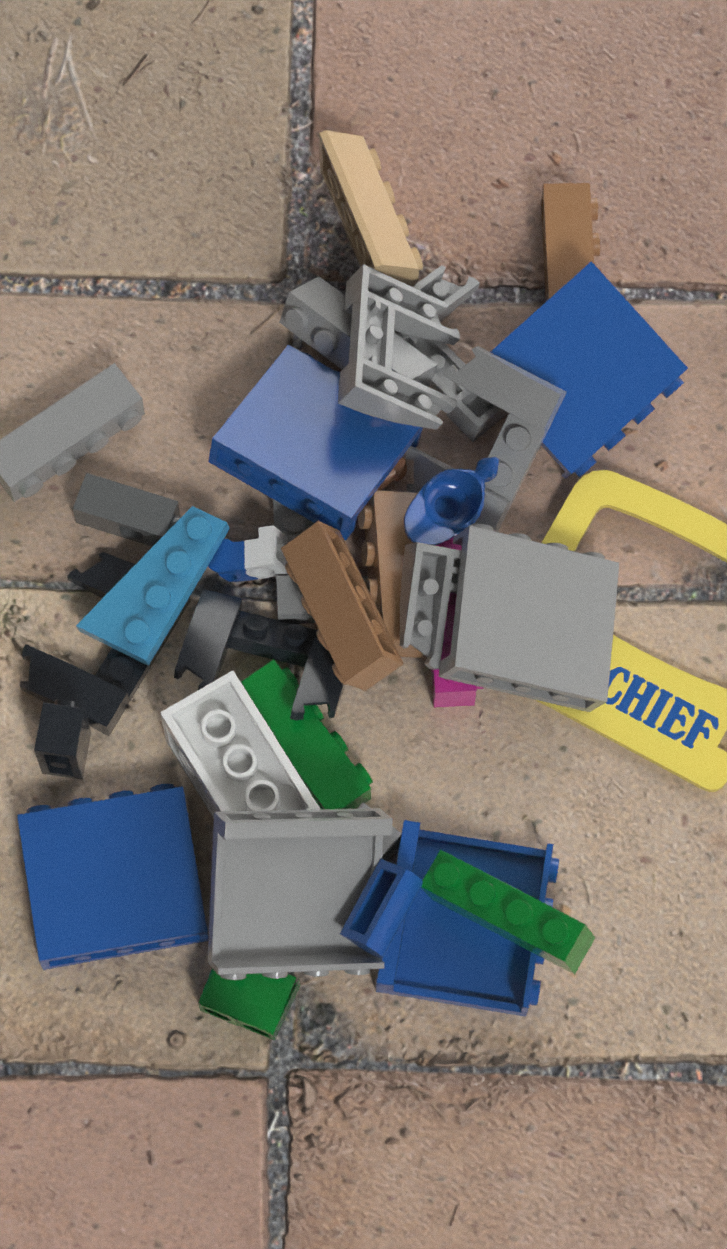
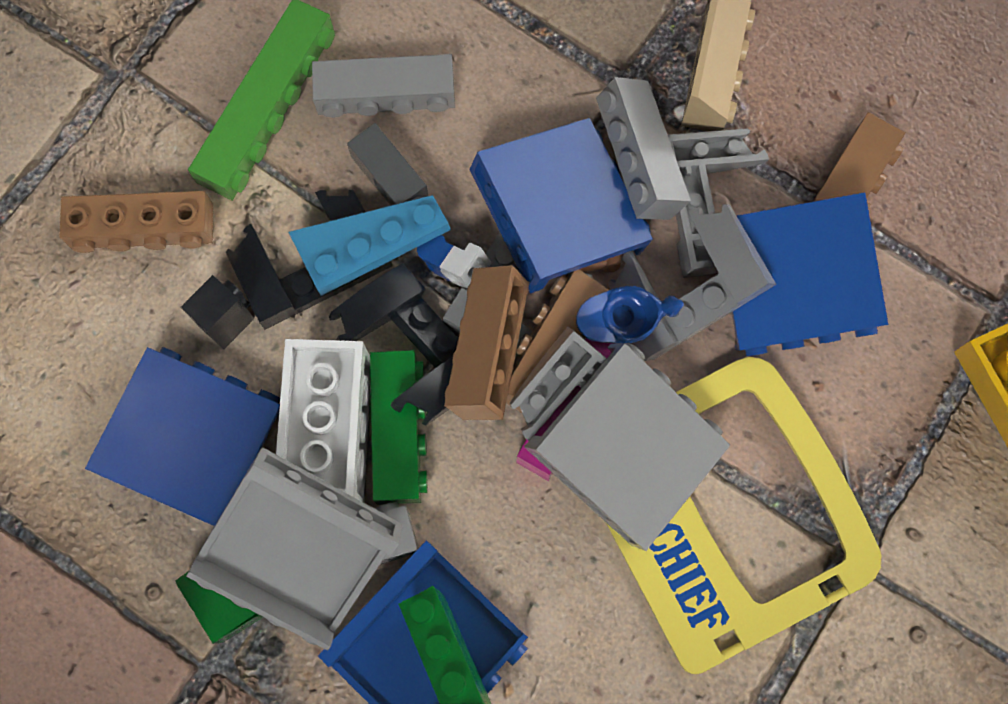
camera: 35 degrees right, 5 degrees up
(368, 383) = (622, 180): light grey wedge -> none
(381, 908) = (352, 604): blue brick -> none

